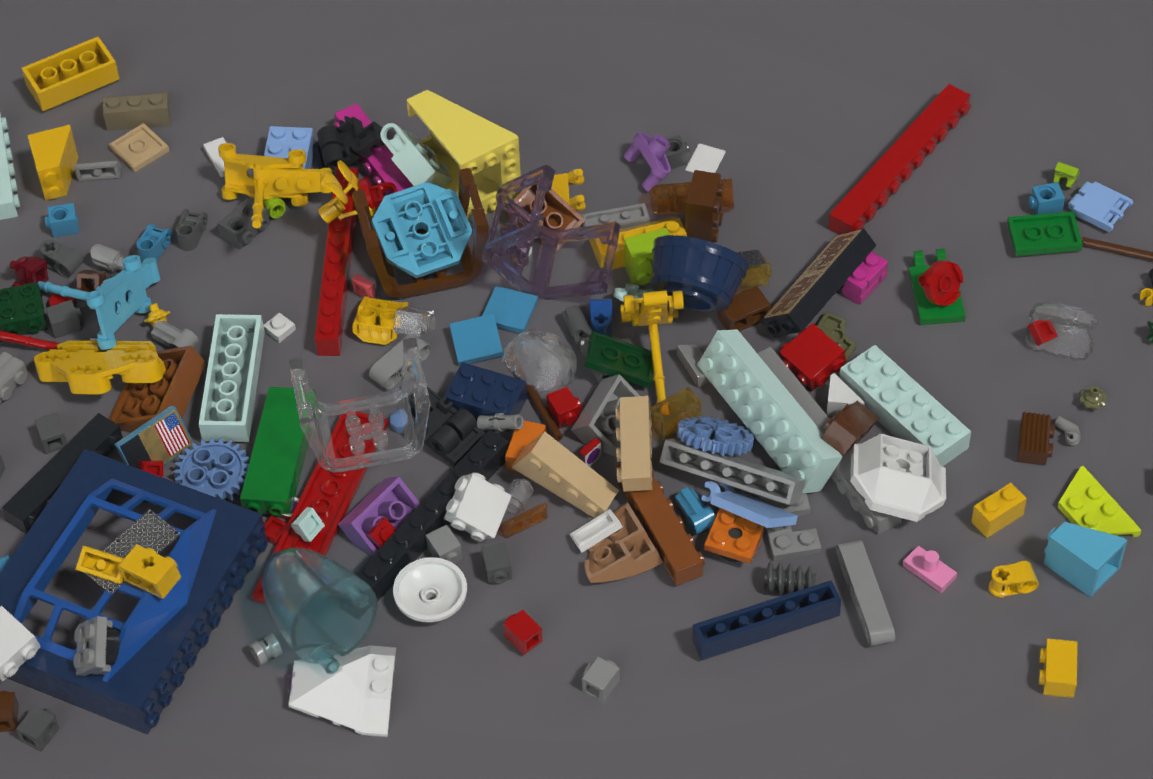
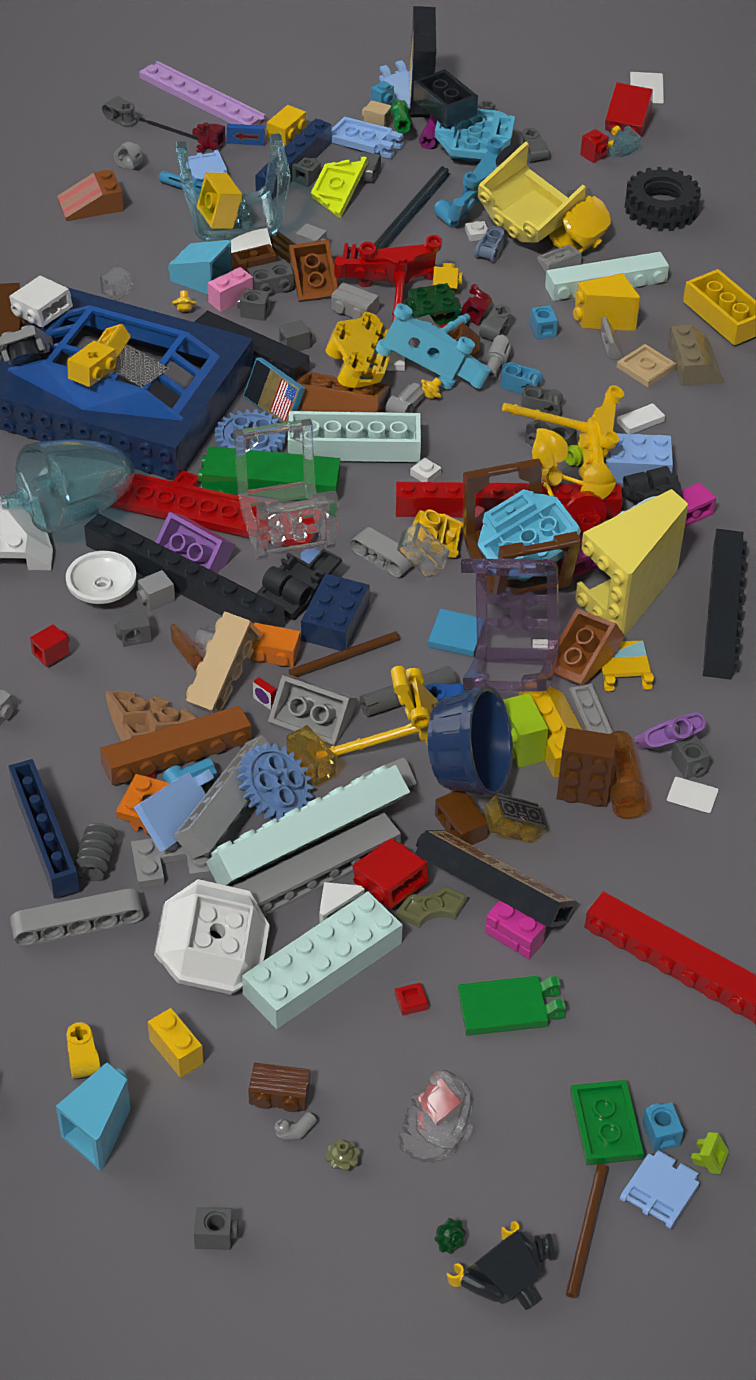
camera: 85 degrees right, 5 degrees down
(154, 467) = (250, 397): red tile -> none
(308, 524) = (177, 490): light aqua tile -> none
(381, 532) = (169, 540): red plate -> none
(476, 339) = (412, 605): dark azure tile -> none
(477, 506) = (189, 600): white brick -> none
(500, 422) = (294, 617): light grey pin -> none
(518, 118) = (724, 604): none -> black brick
(540, 360) = (371, 642): clear animal -> none
(563, 407) = (324, 670): red brick -> none
(595, 530) = (168, 698): white tile -> none
(619, 357) = (379, 710): dark green tile -> none
(635, 443) = (252, 708): tan wedge -> none
(849, 427) = (279, 893): reddish brown brick -> none
(929, 568) = (107, 980): bright pink tile -> none
(933, 354) = (411, 999): none -> red tile
(942, 282) = (496, 991): red tile -> none
(1092, 507) = (180, 1146): neon yellow wing -> none

